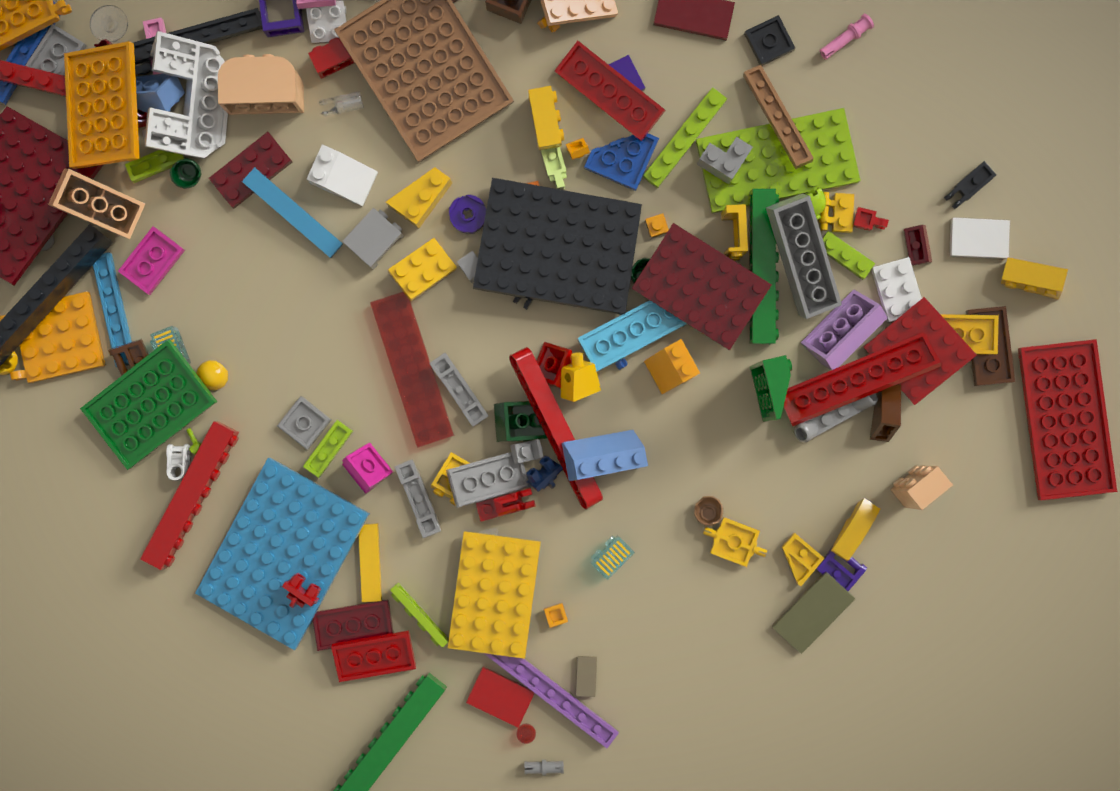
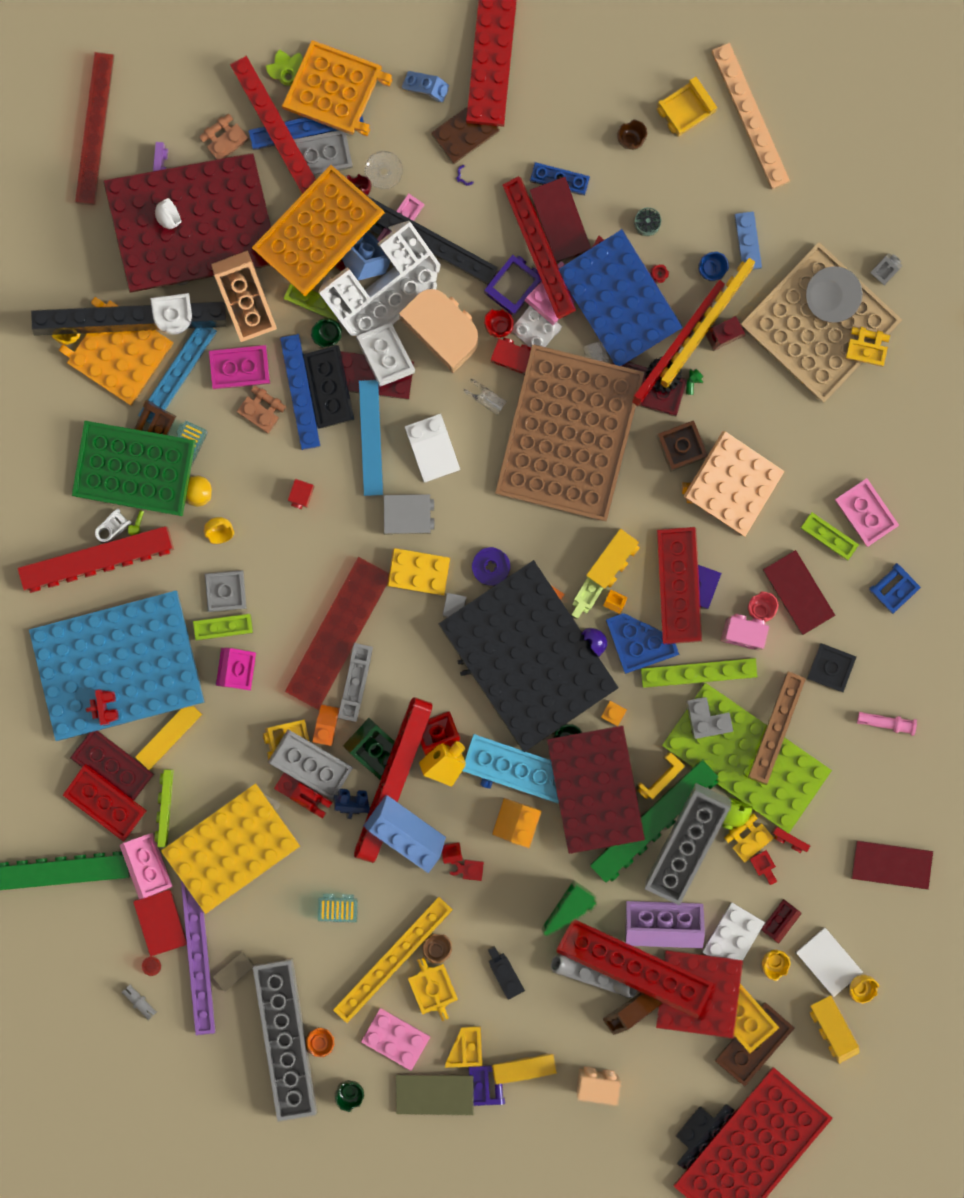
camera: 45 degrees right, 0 degrees up
(58, 268) = (172, 313): none -> white tile
(198, 279) = (258, 414): none -> nougat plate
(211, 233) = (300, 392): none -> blue plate
(226, 209) = (328, 387): none -> black tile
(241, 145) = (385, 354): none -> white plate
(254, 385) = (218, 530): none -> yellow hair
(285, 301) = (300, 494): none -> red brick
(298, 44) = (498, 323): none -> red hair
(418, 498) = (248, 727): light grey slope -> none
(420, 197) = (470, 521): yellow wedge -> none
(448, 669) = (146, 866): none -> bright pink plate
(470, 440) = (326, 725): none -> orange slope
(527, 451) = (356, 774): light grey bracket -> none
(556, 615) = (257, 907): light orange plate -> none
(592, 186) = (596, 639): none -> dark purple hair
(649, 435) = (451, 853): none -> red plate
(672, 686) = (285, 1039): none -> light grey brick
(673, 433) = (471, 870): none -> red plate
(681, 46) = (763, 606): none -> coral hair
(686, 551) = (392, 959): none -> yellow plate
(688, 72) = (744, 632): none -> bright pink brick
(697, 661) = (319, 1042): none -> orange hair
(746, 603) = (395, 1039): none -> bright pink plate
(756, 676) = (349, 1095): none -> dark green hair
(772, 479) = (505, 974): none -> black hinge
(847, 256) = (722, 874): lime plate -> none
(874, 181) = (797, 844): none -> red plate
(947, 277) = (775, 964): none -> yellow hair
(951, 128) = (892, 865): none -> dark red tile
(972, 183) = (864, 918): black hinge -> none
(1016, 444) = (699, 1131): none -> black bracket
(1023, 230) = (863, 988): none -> yellow hair

